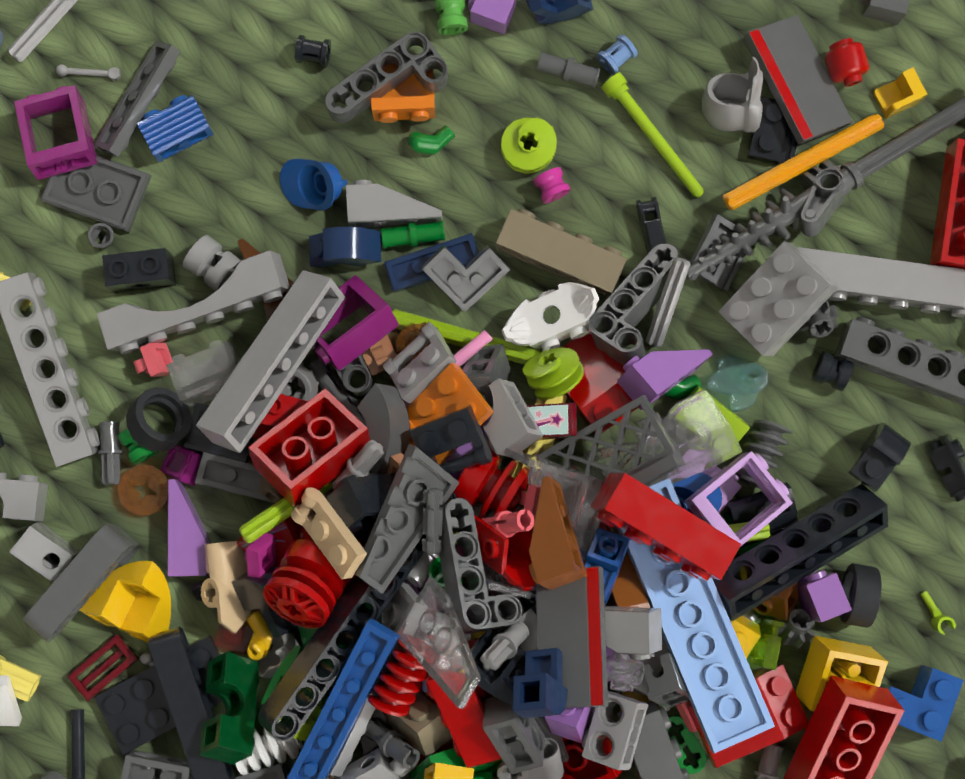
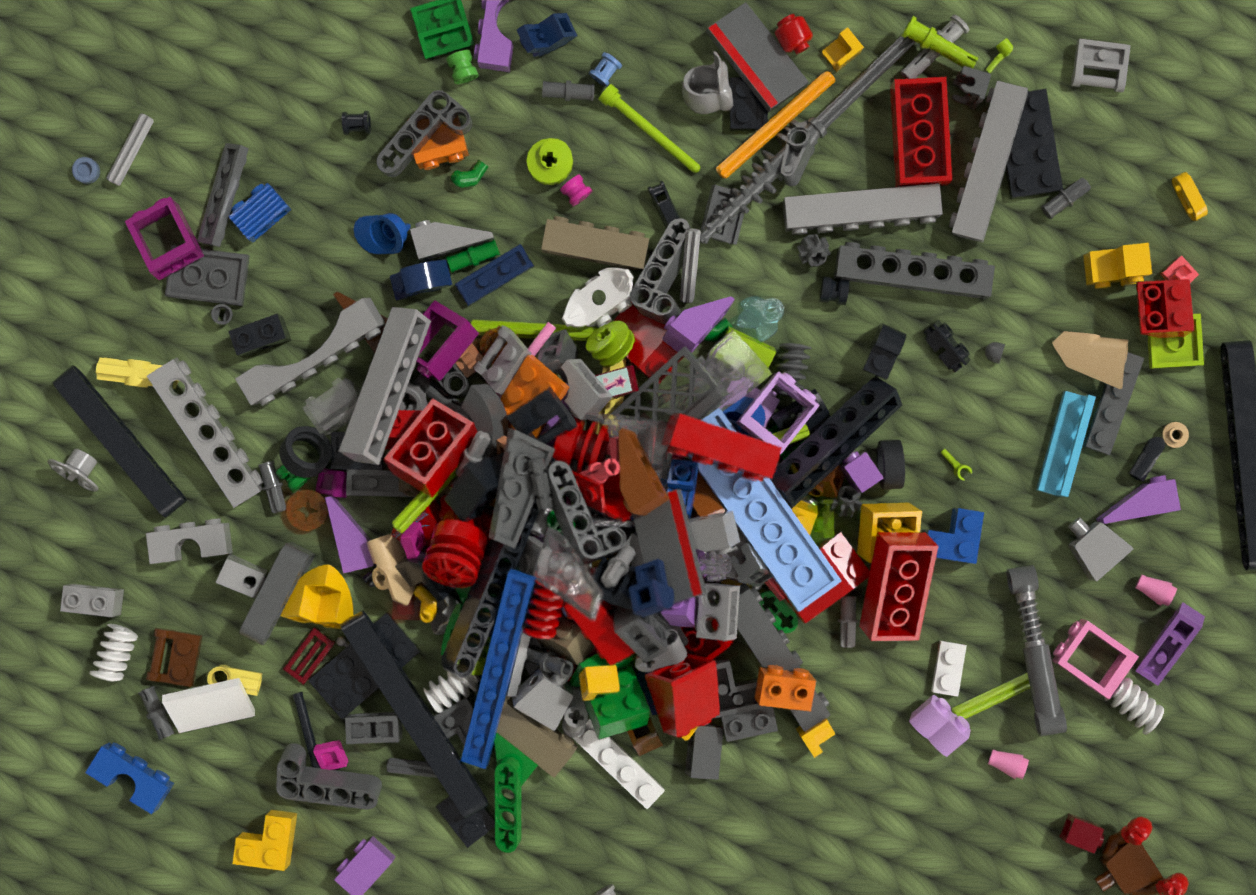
camera: 10 degrees left, 5 degrees up
(113, 72) = (197, 177): light grey hinge -> none
(154, 360) = (290, 405): coral tile -> none
(207, 254) = (309, 313): light grey wheel -> none
(236, 683) = (423, 682): dark green arch -> none
(329, 533) = (462, 510): tan plate -> none
(465, 283) = (522, 286): plate -> none
(778, 299) = (777, 243): light grey brick -> none

